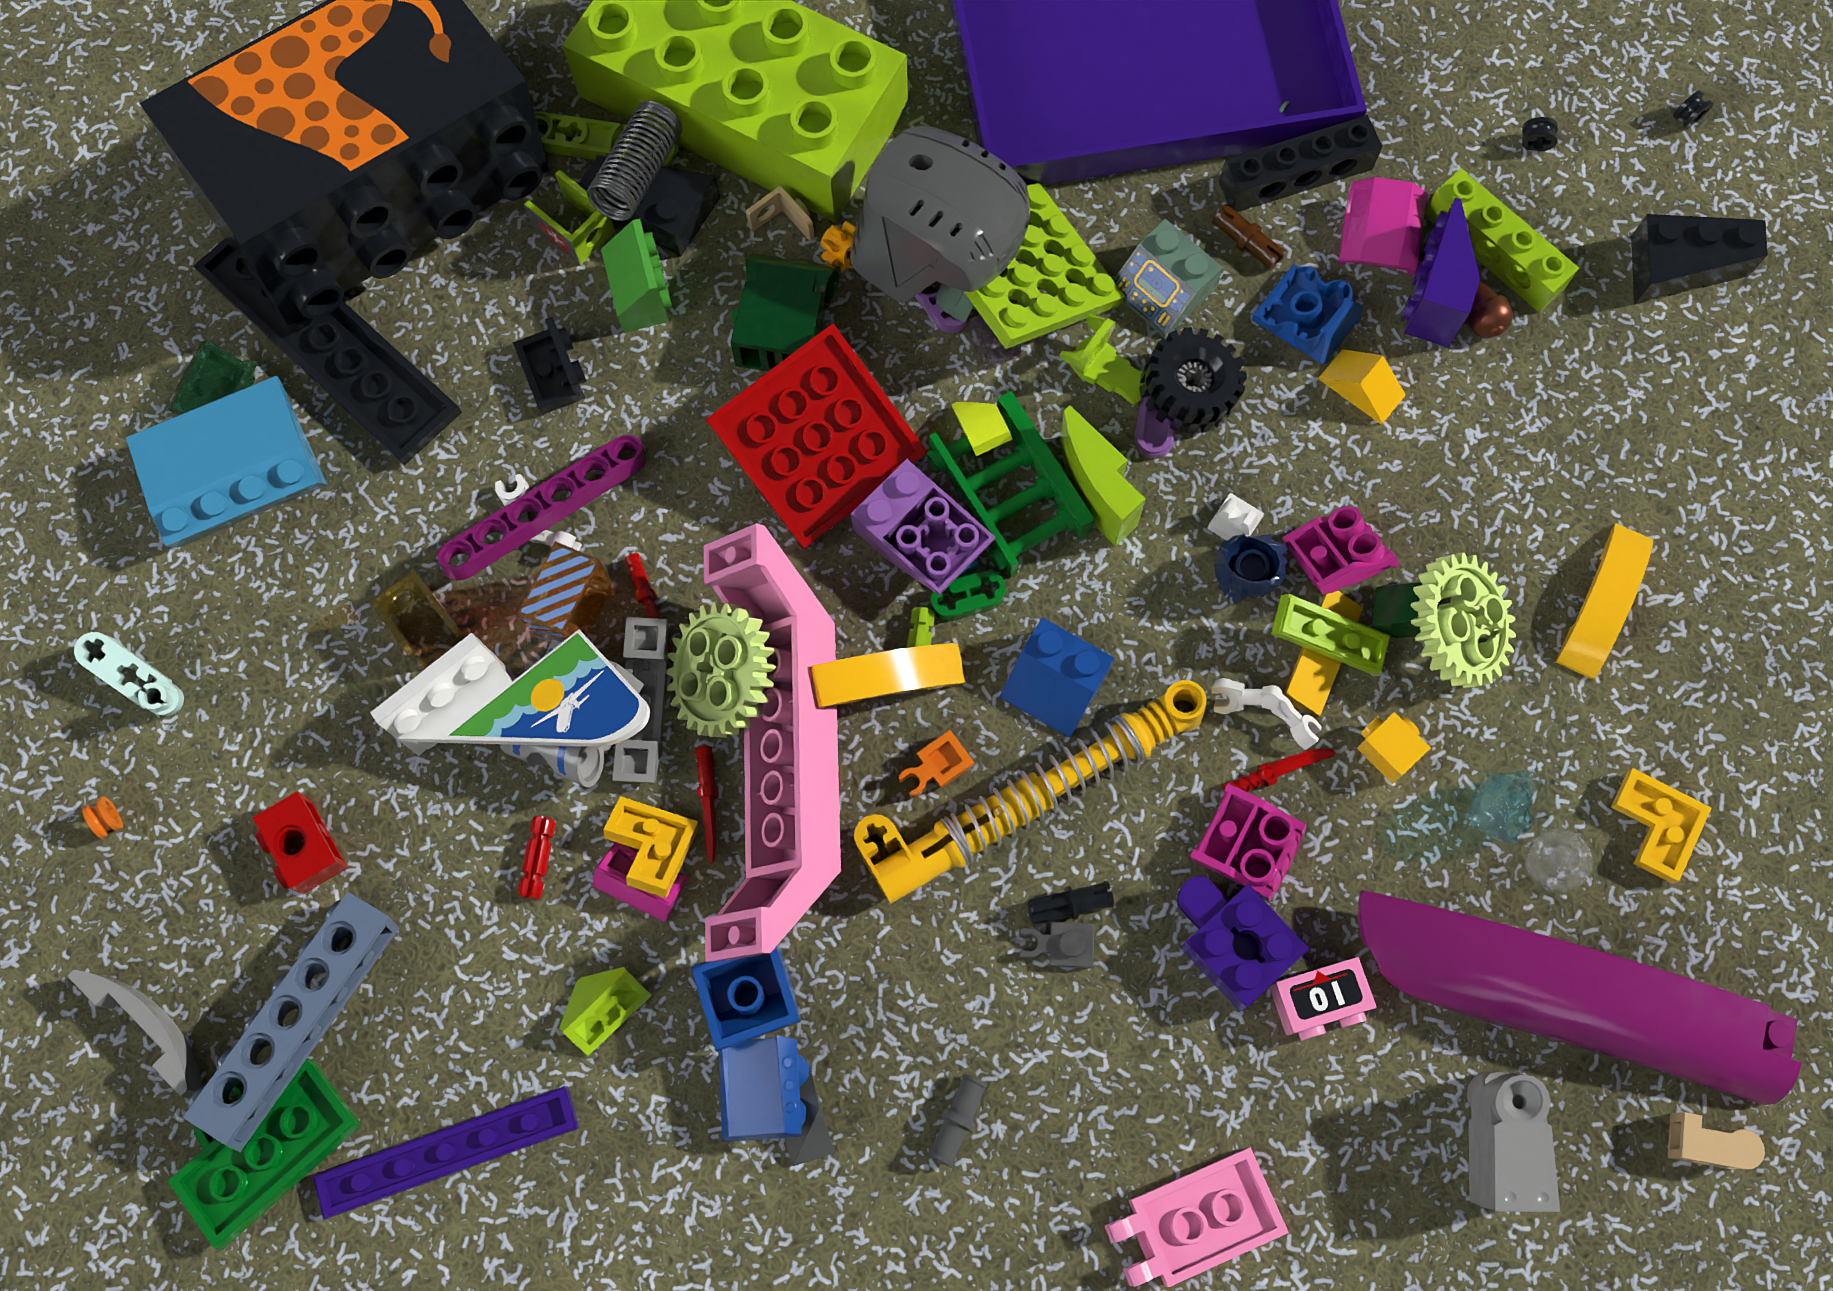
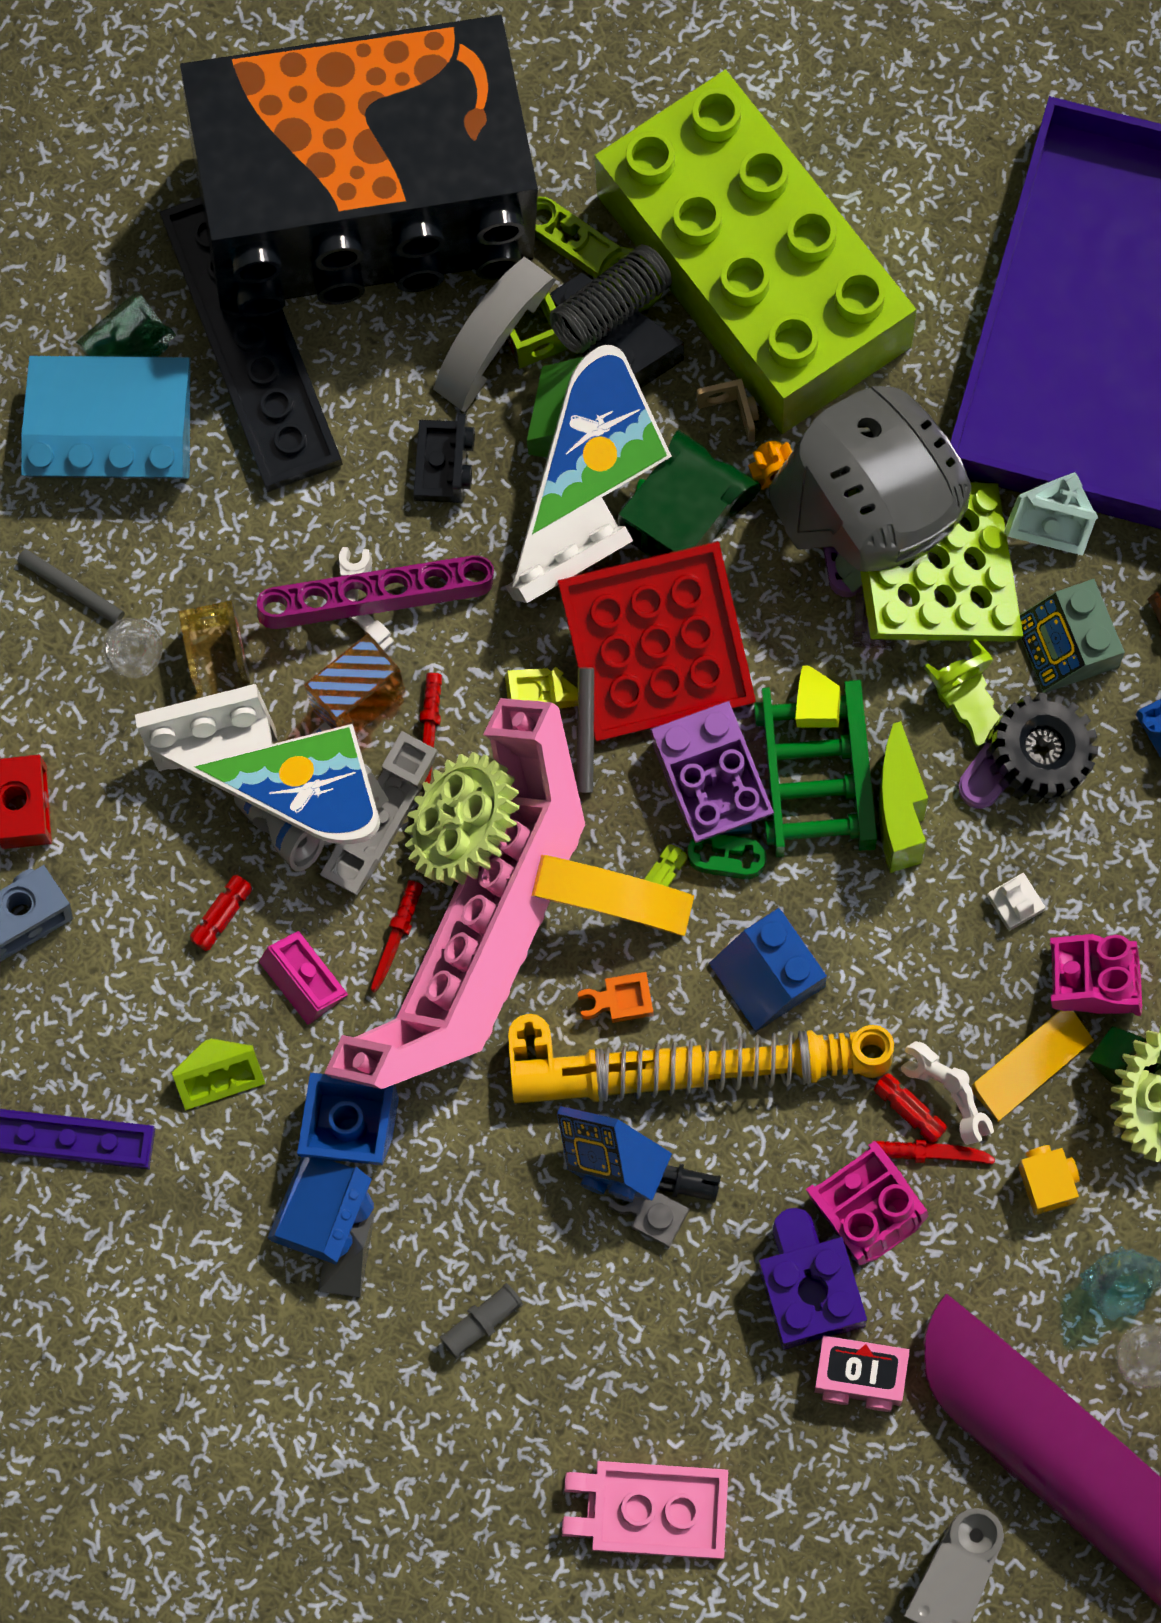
camera: 30 degrees right, 0 degrees up
(260, 627) = (70, 586): none -> dark grey bar
(342, 655) = (132, 648): none -> clear plate
(537, 239) = (487, 330): none -> light grey slope
(659, 837) = (337, 945): yellow plate -> none
(684, 291) = (597, 446): none -> piece
(732, 520) = (541, 686): none -> neon yellow slope
(789, 537) = (585, 730): none -> dark grey bar
(1005, 910) = (611, 1155): none -> slope
(1103, 182) = (1054, 516): none -> light aqua slope
(1239, 741) = (910, 1108): none -> red axle
(1250, 566) = (1002, 950): dark blue hair -> none
(1330, 634) = (1043, 1049): lime tile -> none

